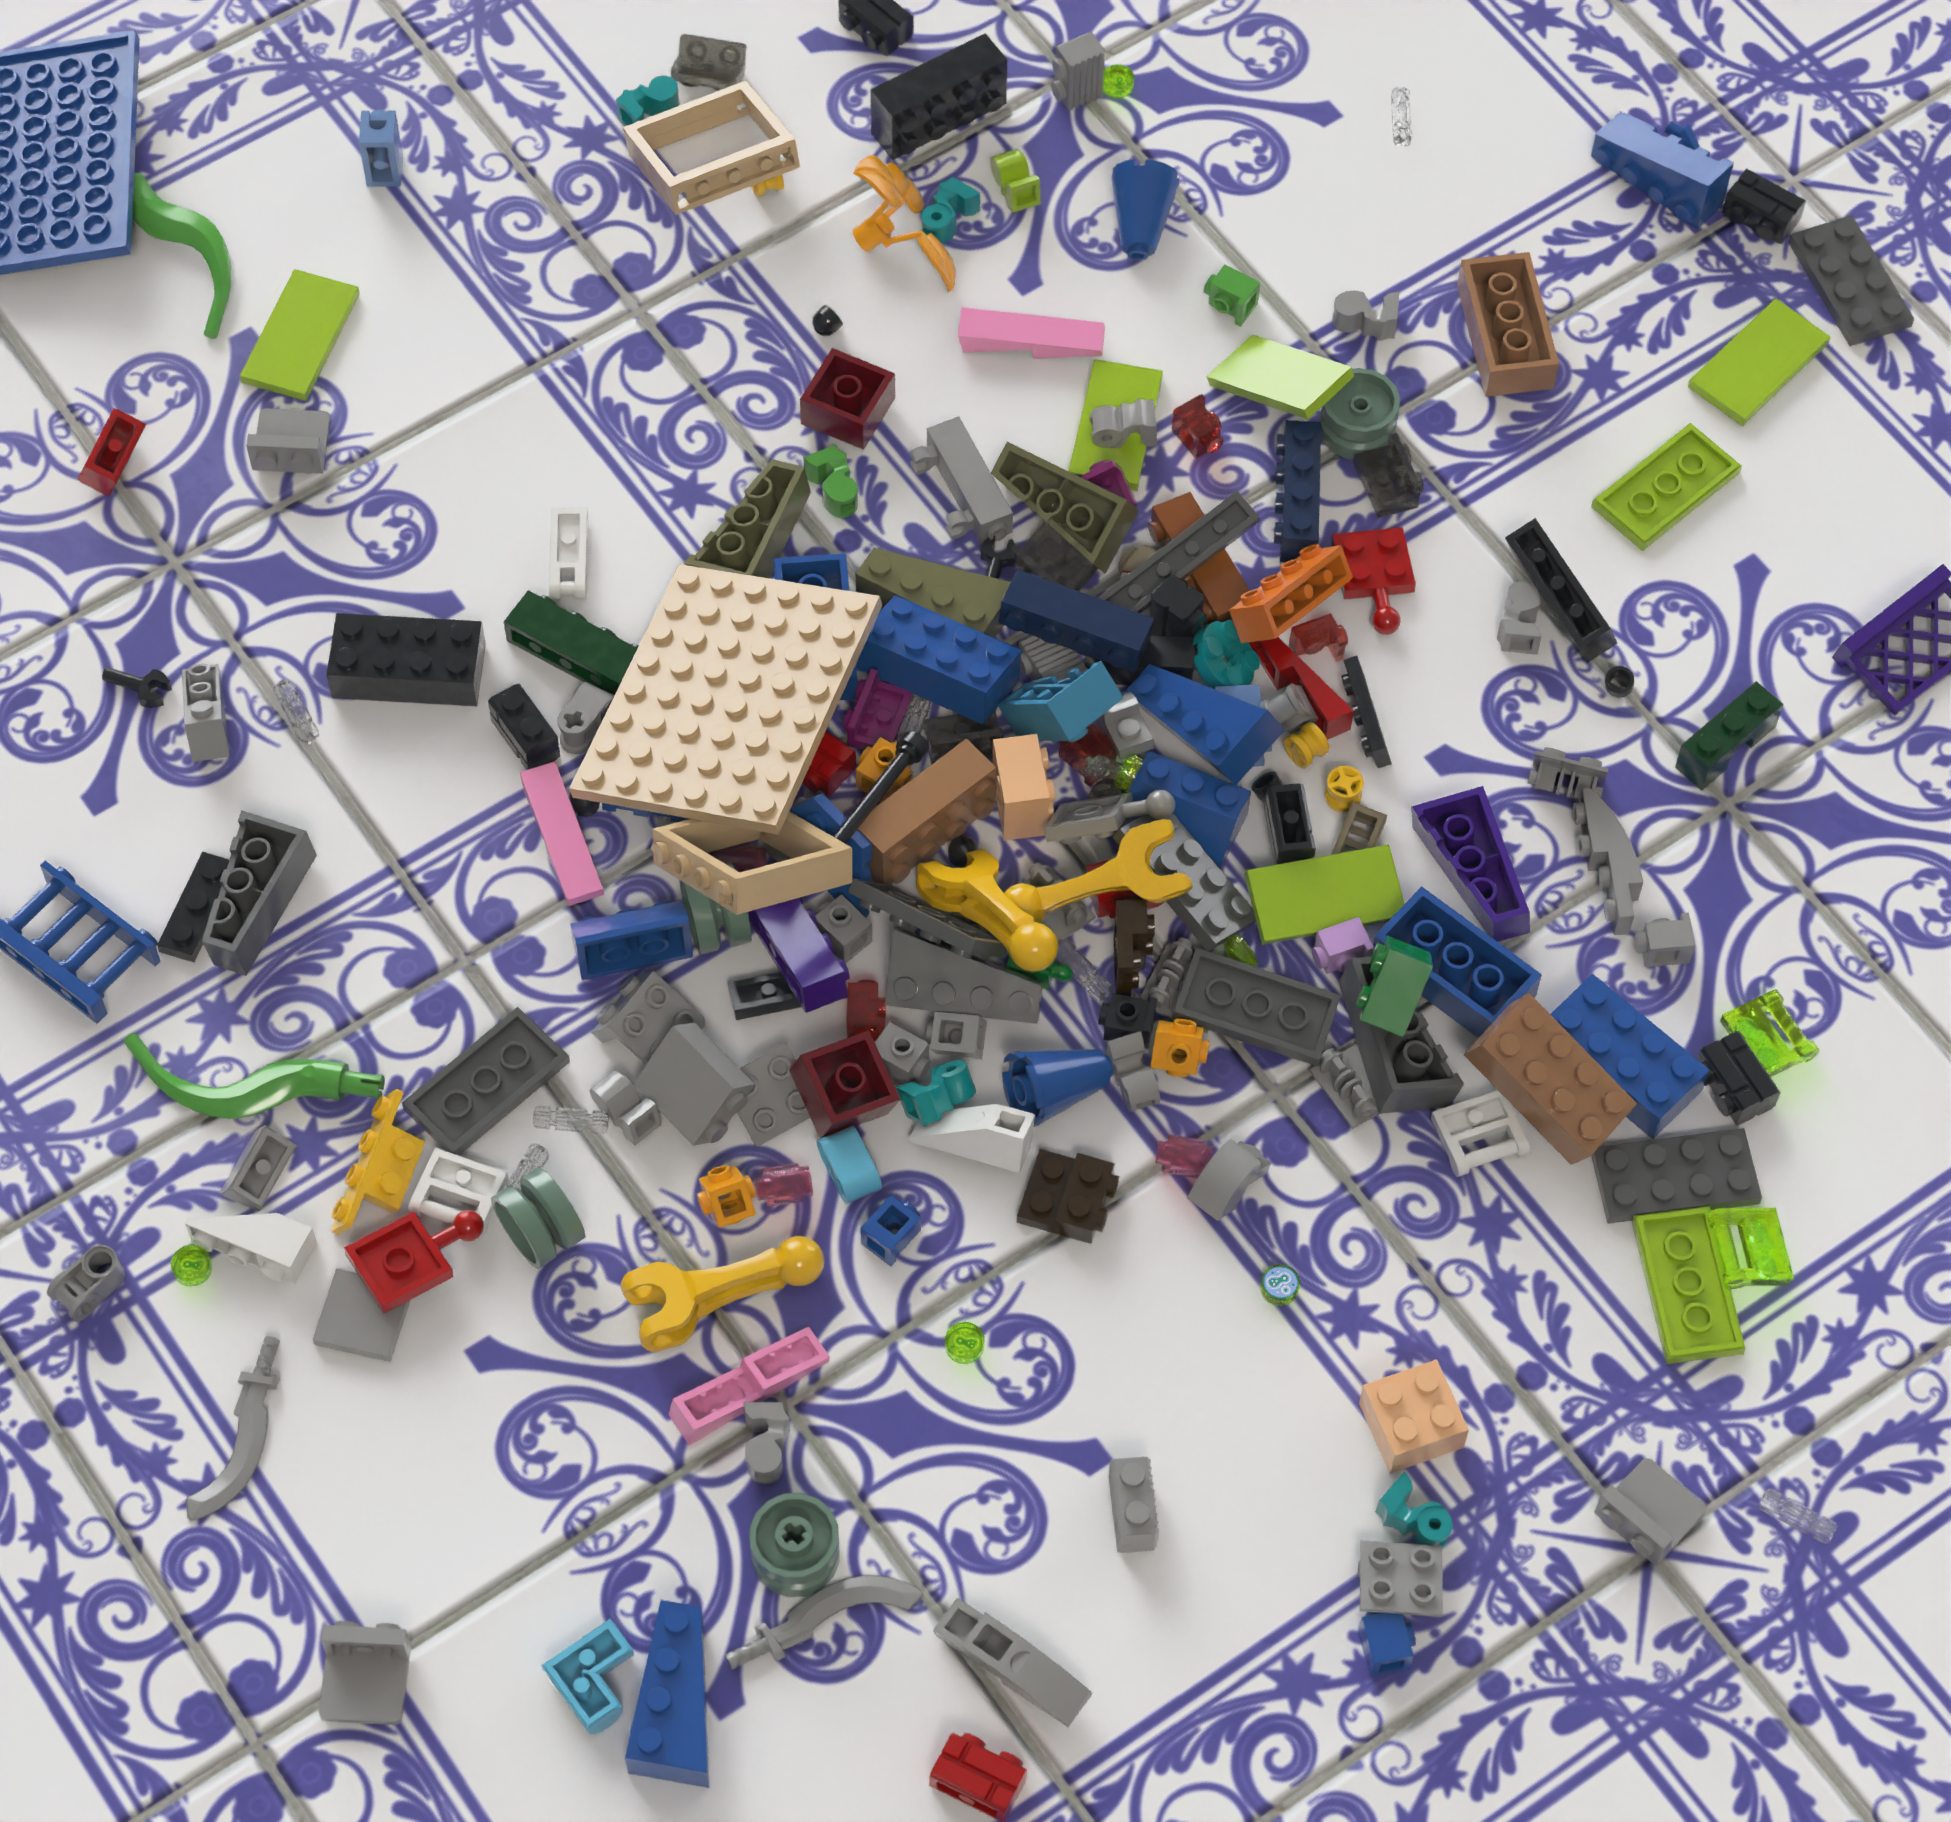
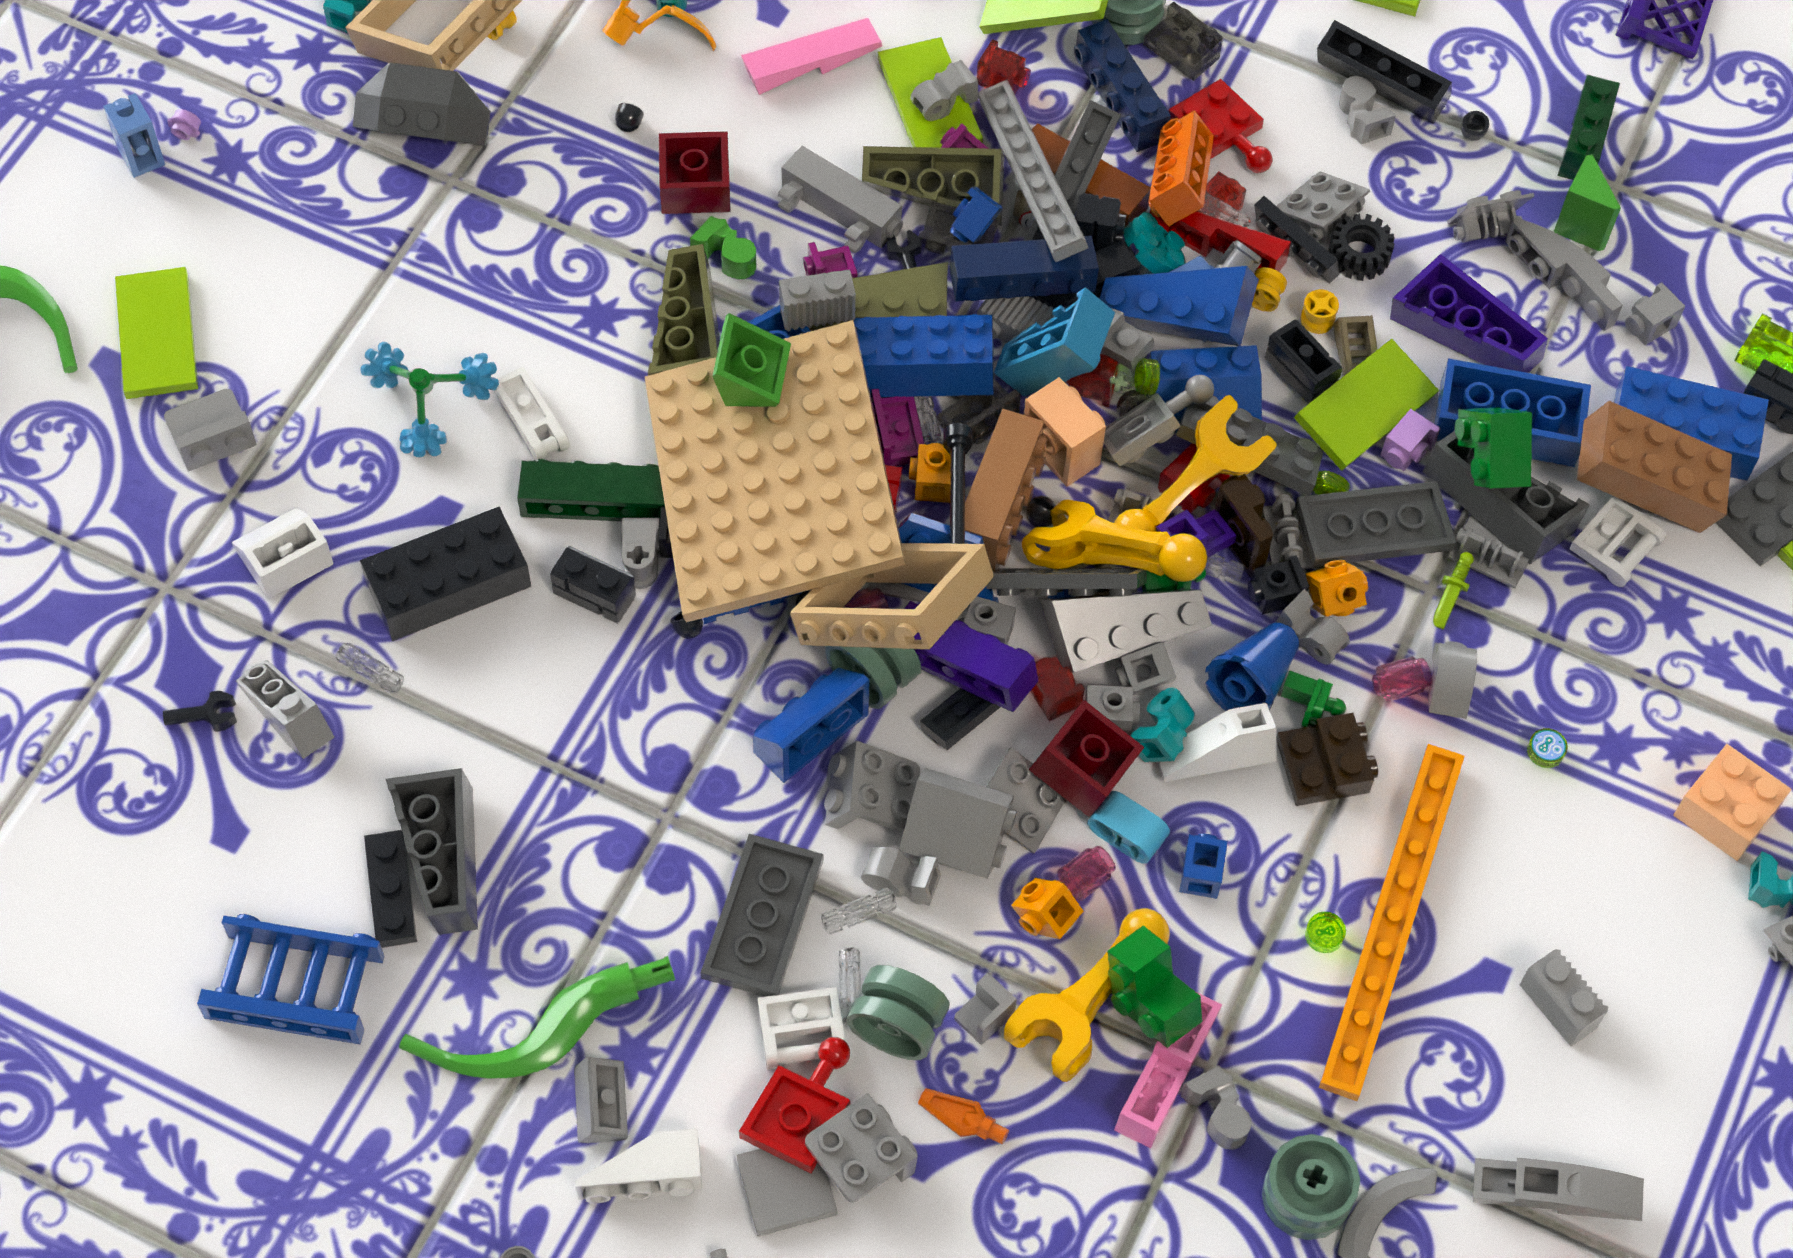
camera: 30 degrees left, 0 degrees up
(111, 452) = (47, 513): red brick -> none
(191, 1265) = (597, 1223): clear neon green tile -> none
(283, 578) = (284, 552): none -> white slope
(383, 1166) = (716, 1040): yellow bracket -> none
(435, 157) = (184, 124): none -> lavender plate
(435, 1314) = (861, 1149): none -> light grey bracket
(469, 454) = (386, 367): none -> dark azure plant
(545, 1334) = (962, 1115): none -> orange piece
(561, 833) = (687, 661): bright pink slope -> none
(621, 1257) = (986, 1010): none -> light grey panel
(646, 231) = (422, 105): none -> dark grey wedge
(758, 592) = (750, 364): none -> bright green slope
(764, 1306) = (1149, 990): none -> green brick
(866, 563) = (817, 299): none -> light grey brick
(916, 539) = (828, 260): none -> magenta bracket
(1028, 1362) = (1391, 923): none -> light orange plate
(1069, 551) = (974, 216): none -> blue brick
(1081, 941) = (1209, 529): none -> dark purple slope
(1095, 1134) = (1312, 694): none -> green piece
(1146, 533) = (1032, 171): none -> light grey tile
(1263, 782) = (1257, 335): black hinge -> none
(1292, 1102) = (1455, 585): none -> lime piece
(1310, 653) = (1223, 211): none -> clear axle
(1419, 686) = (1324, 203): none -> light grey hinge
(1429, 729) = (1364, 231): none -> black tyre
(1662, 806) = (1588, 208): none -> bright green slope

